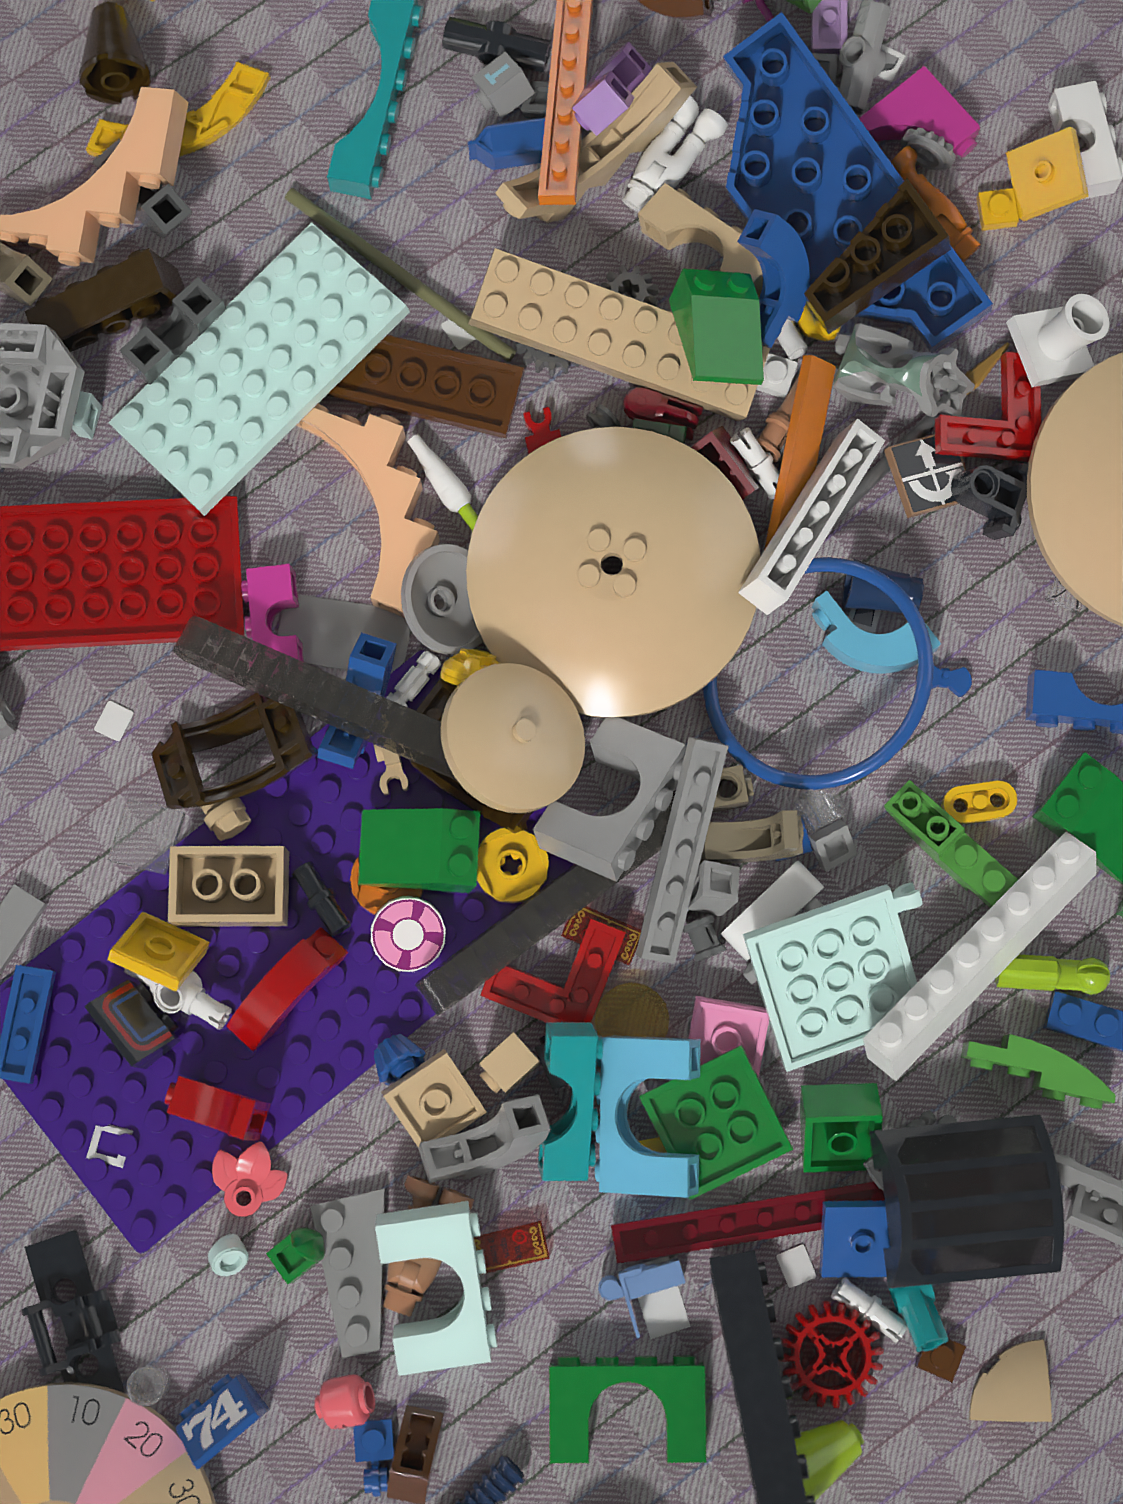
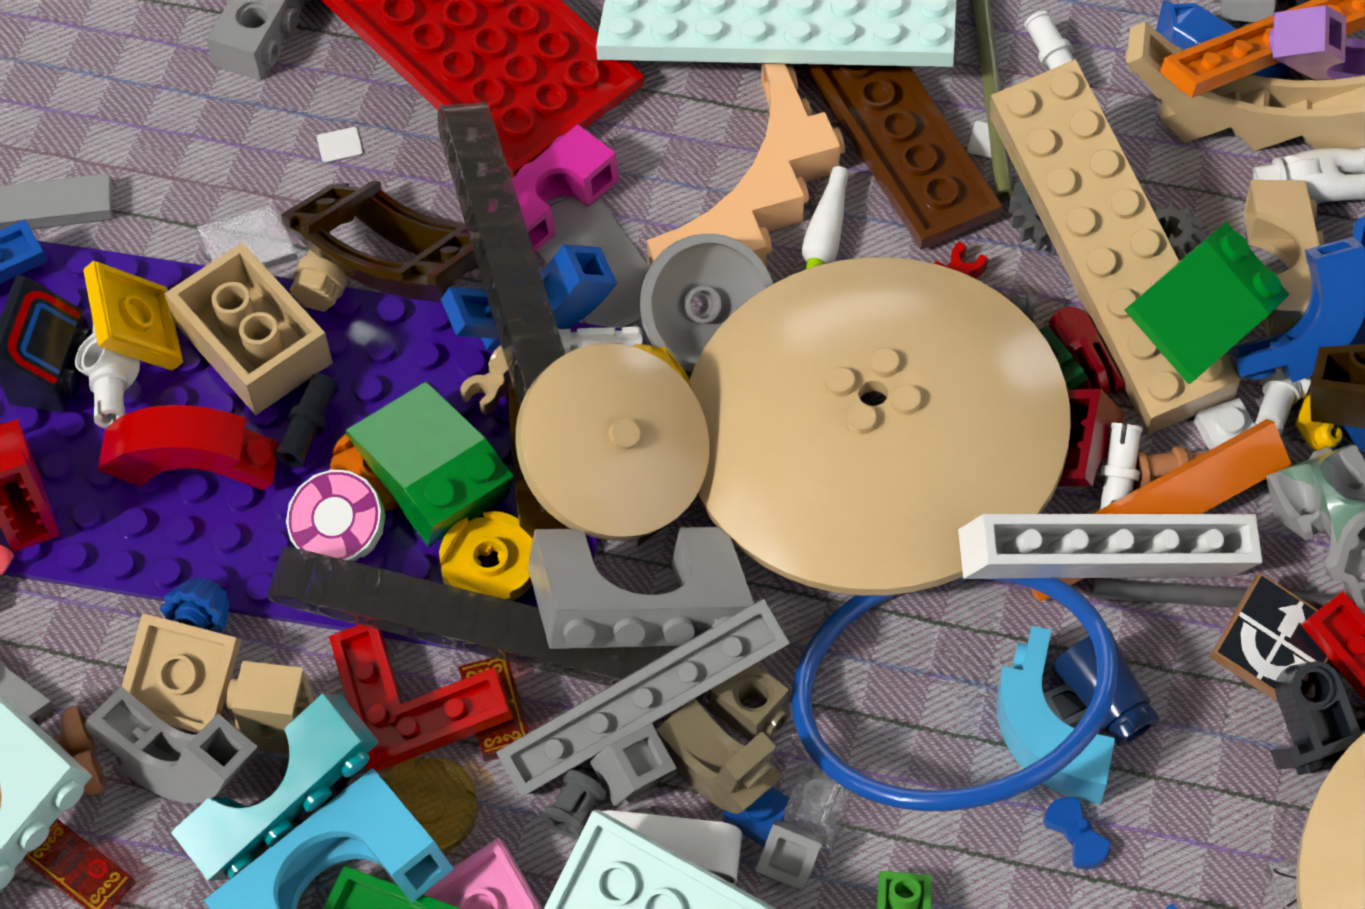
camera: 50 degrees right, 20 degrees down
(439, 236) = (1051, 46): none -> white pin

